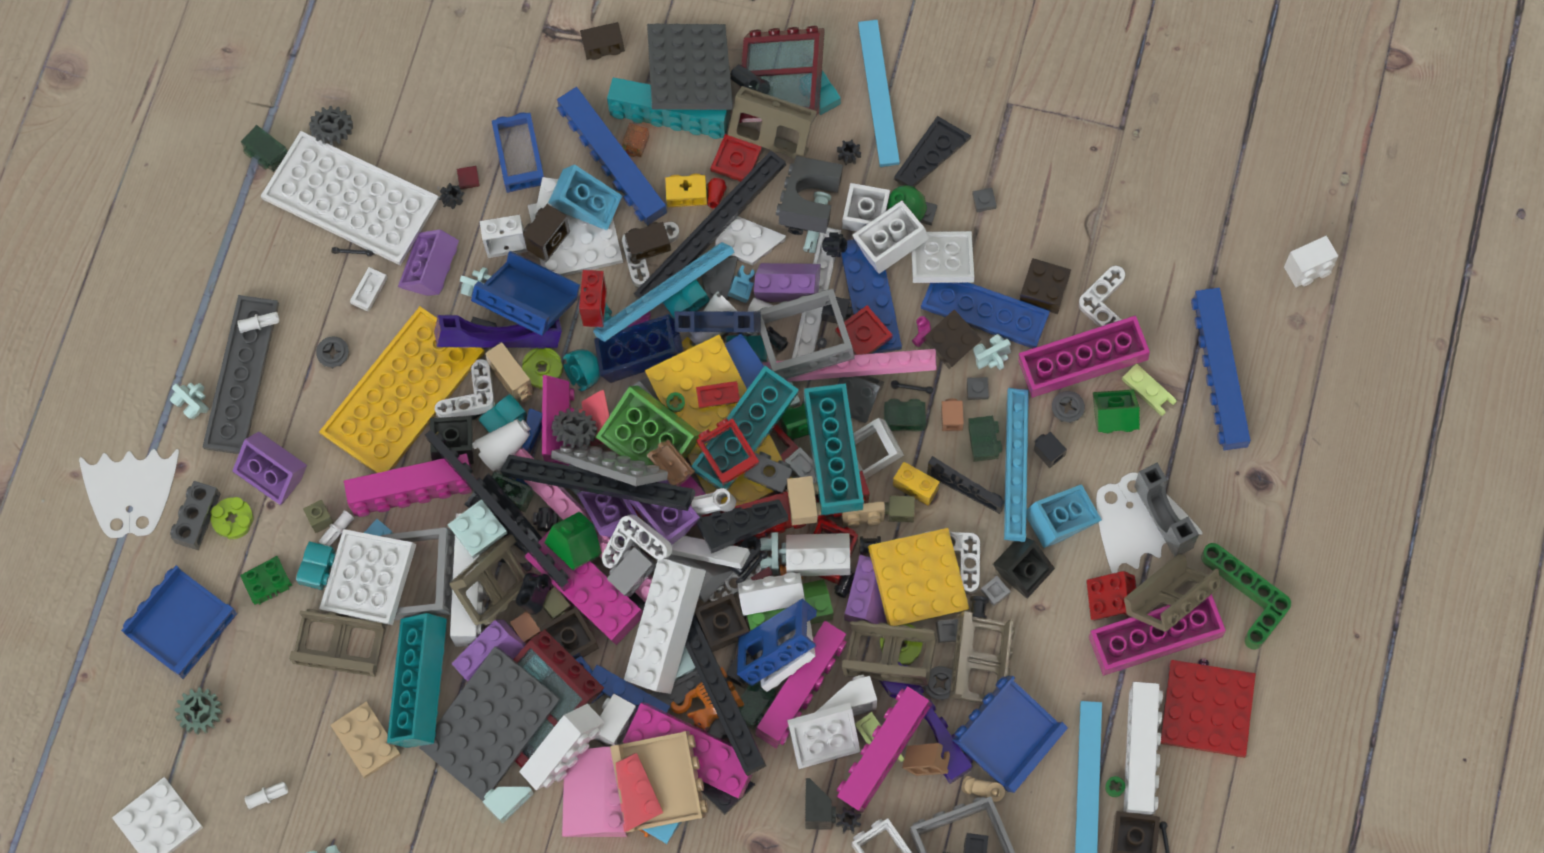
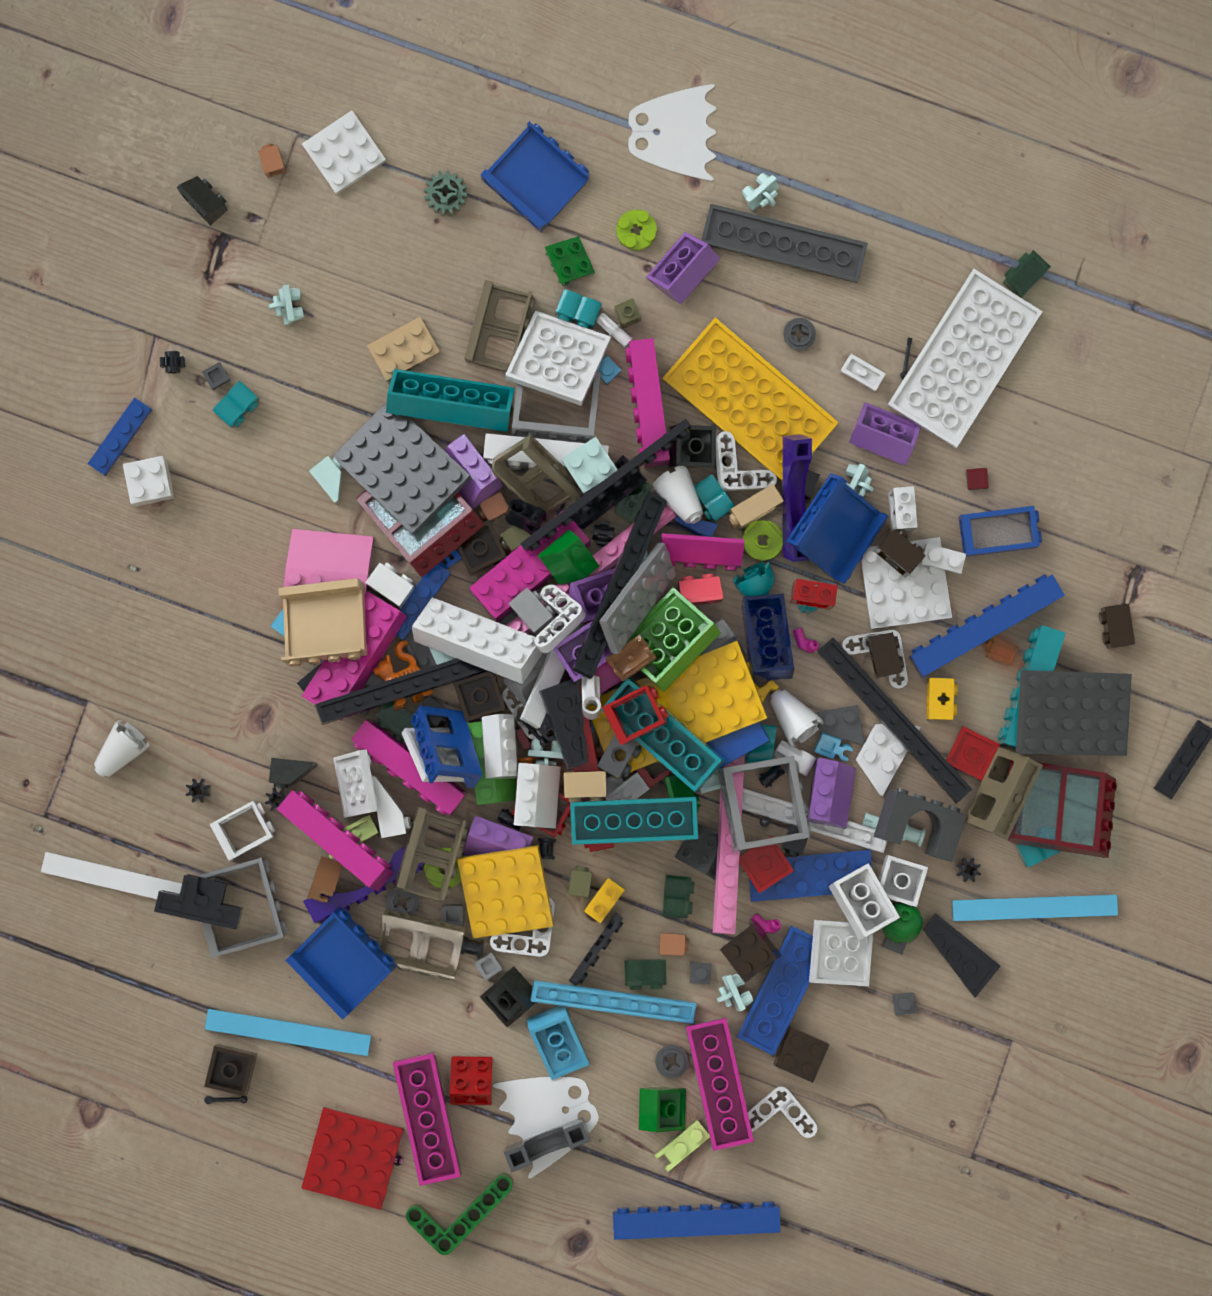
camera: 90 degrees right, 15 degrees up
(198, 524) = (646, 203): dark grey brick -> none
(258, 322) = (834, 261): white axle -> none
(266, 795) = (358, 253): white axle -> none
(331, 125) = (1041, 334): dark grey gear -> none
(448, 194) = (950, 460): black gear -> none
(562, 747) = (364, 534): white brick -> none
(574, 428) = (693, 567): dark grey gear -> none
(585, 197) = (937, 595): medium azure slope -> none
(637, 794) = (311, 600): coral wing -> none
(663, 291) = (827, 668): medium azure tile -> none
(680, 406) = (704, 664): green bush -> none
(687, 299) = (820, 688): teal brick -> none
(716, 190) = (937, 729): red cone -> none
(717, 321) = (787, 699): dark blue arch -> none
(718, 394) = (702, 711): red plate -> none
(747, 79) = (1052, 774): black piece -> none
(834, 244) = (863, 844): black gear -> none
(871, 514) = (574, 853): tan plate -> none
(886, 436) = (647, 876): white window -> none
(895, 384) = (703, 924): black hinge -> none
(983, 788) = (294, 936): tan piece -> none
(1049, 449) = (628, 1037): black brick -> none
(1113, 793) = (279, 1055): green bush -> none
(1141, 748) = (311, 1087): white brick -> none
(1161, 589) = (467, 1129): dark tan window -> none

